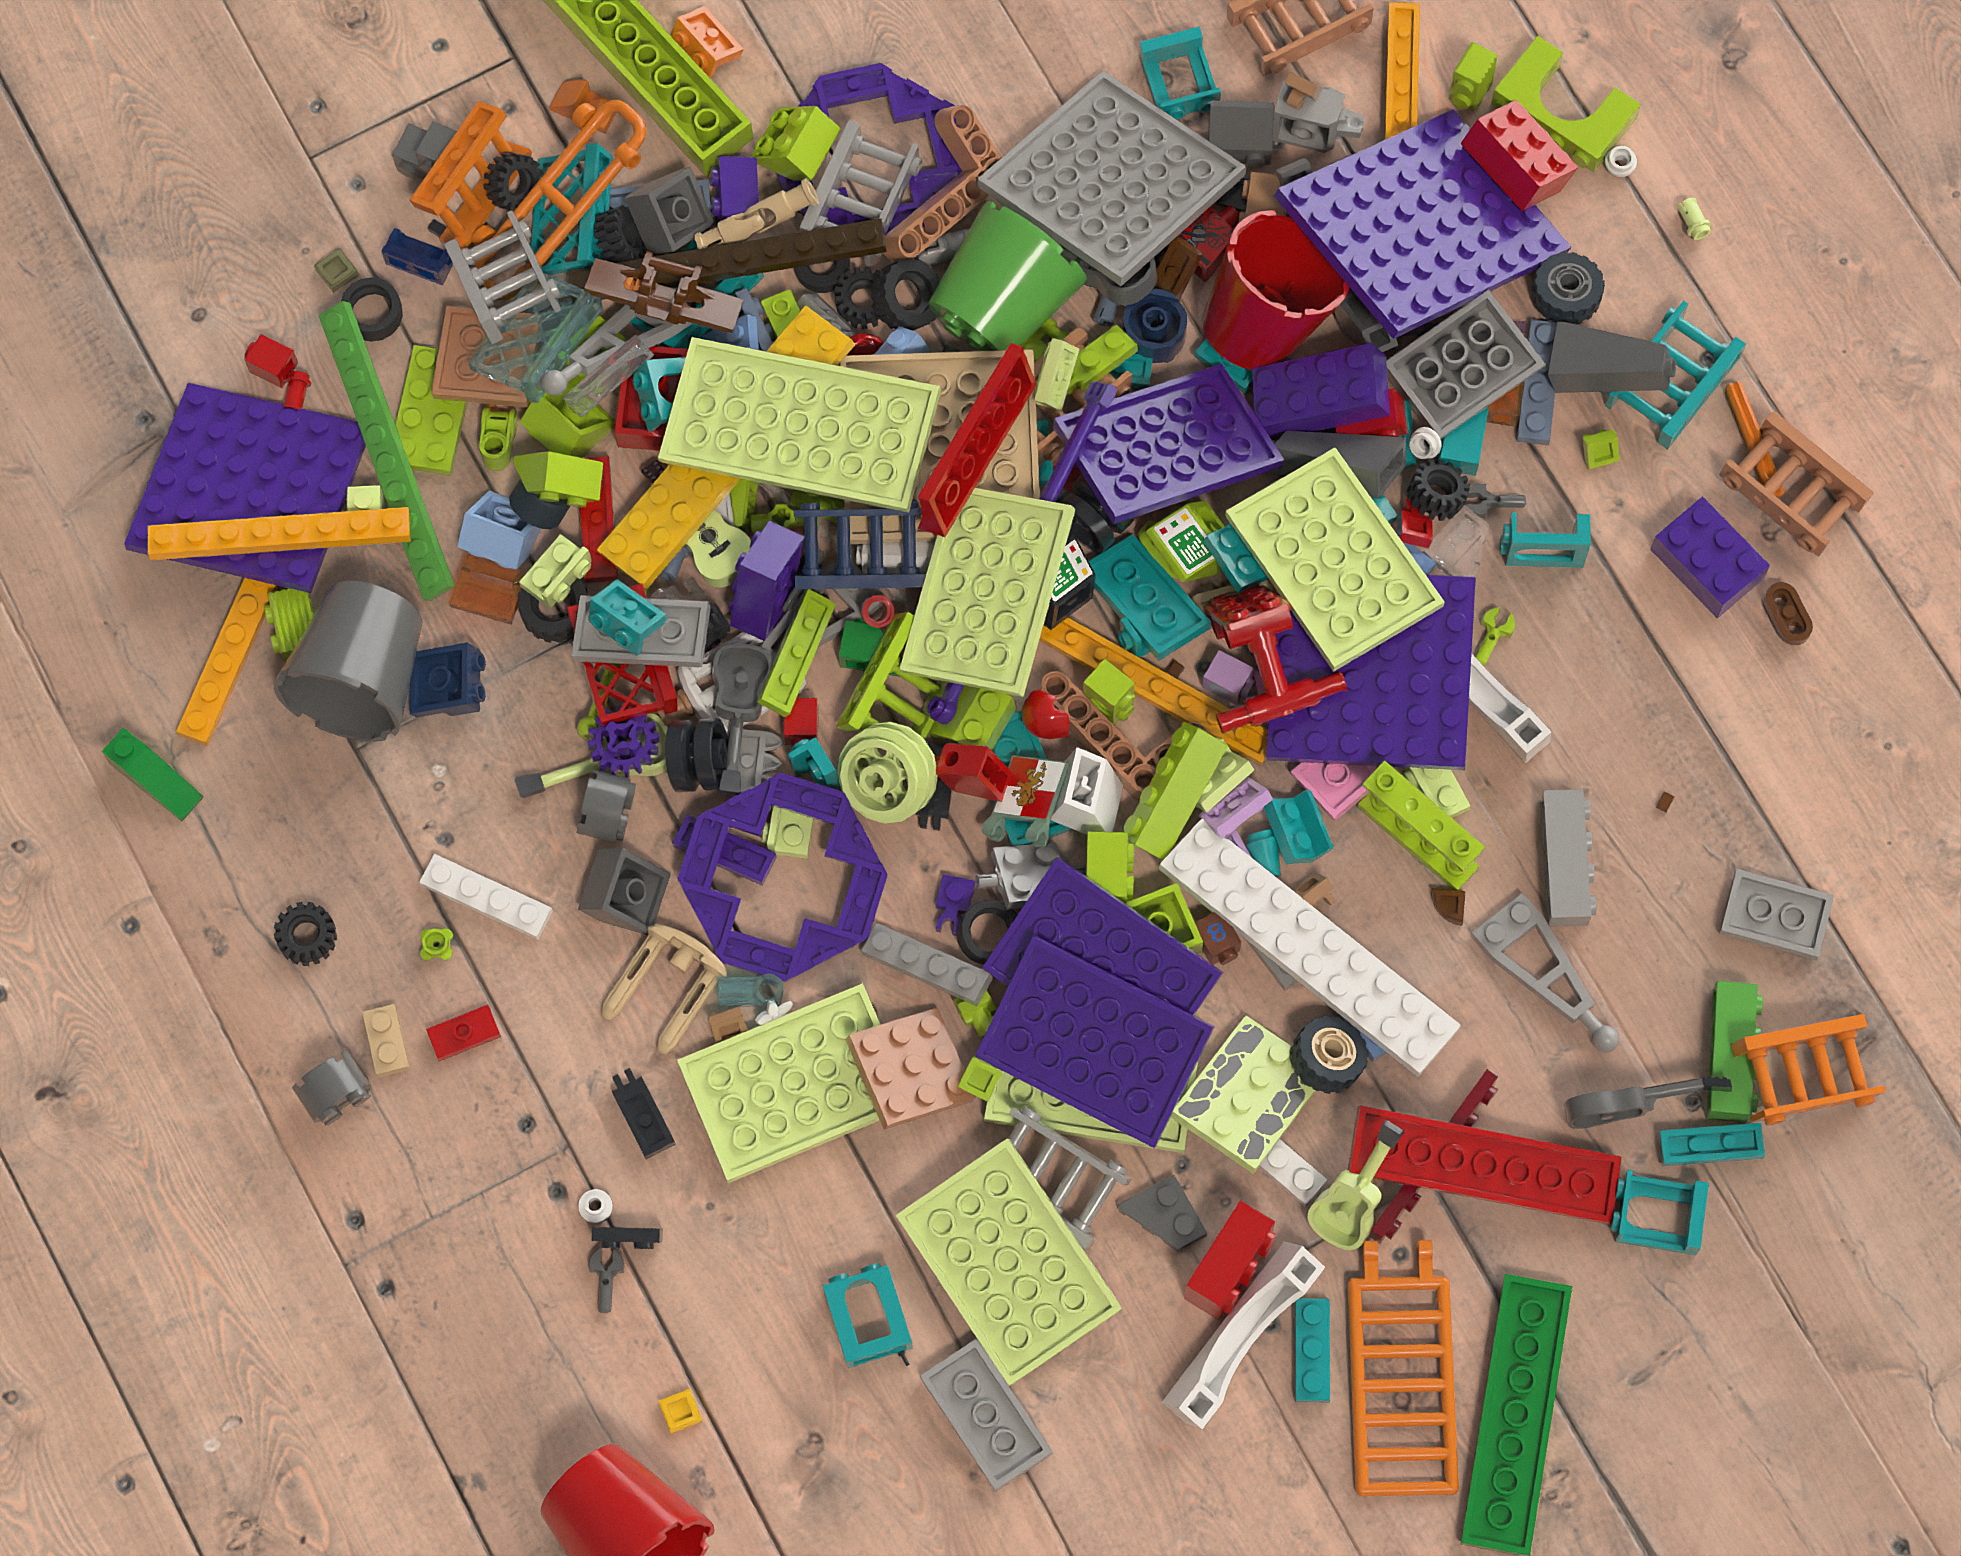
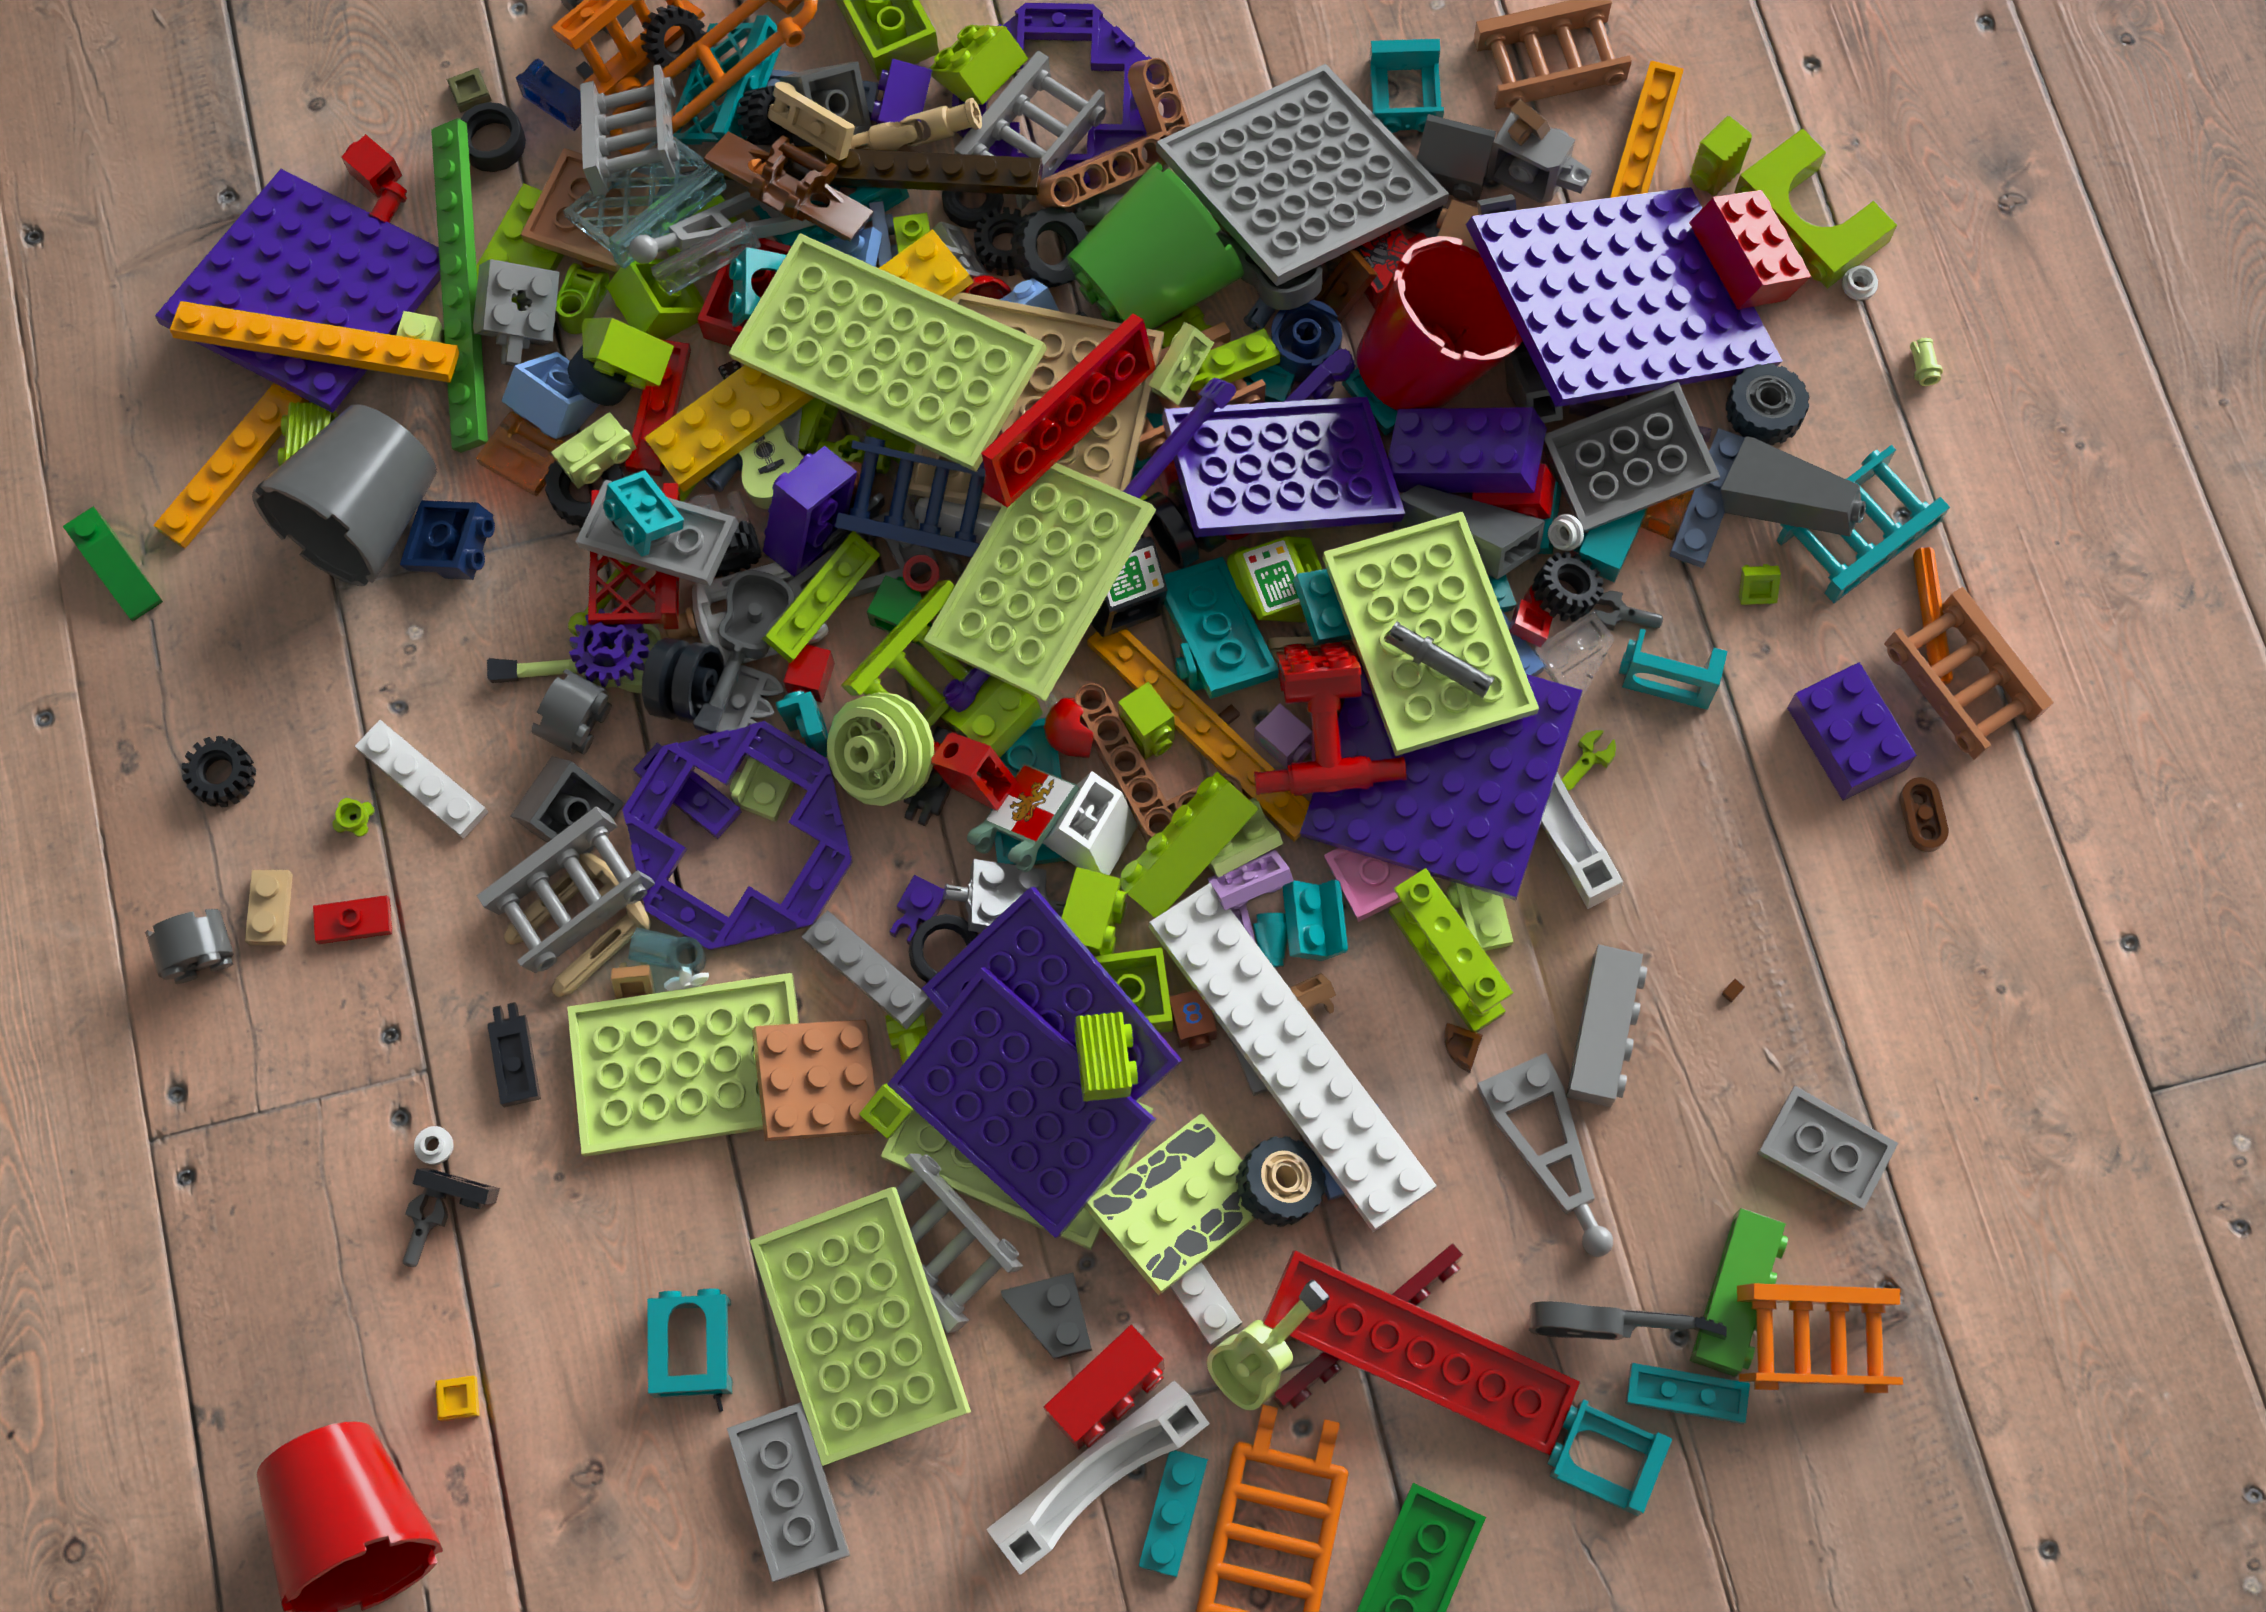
camera: 15 degrees right, 0 degrees up
(447, 460) = (498, 316): none -> light grey hinge
(638, 929) = (535, 873): none -> light grey fence
(666, 232) = (811, 121): none -> tan plate
(1159, 983) = (1104, 1056): none -> lime brick
(1177, 362) = (1321, 381): none -> dark purple hinge
(1350, 580) = (1439, 659): none -> dark grey pin

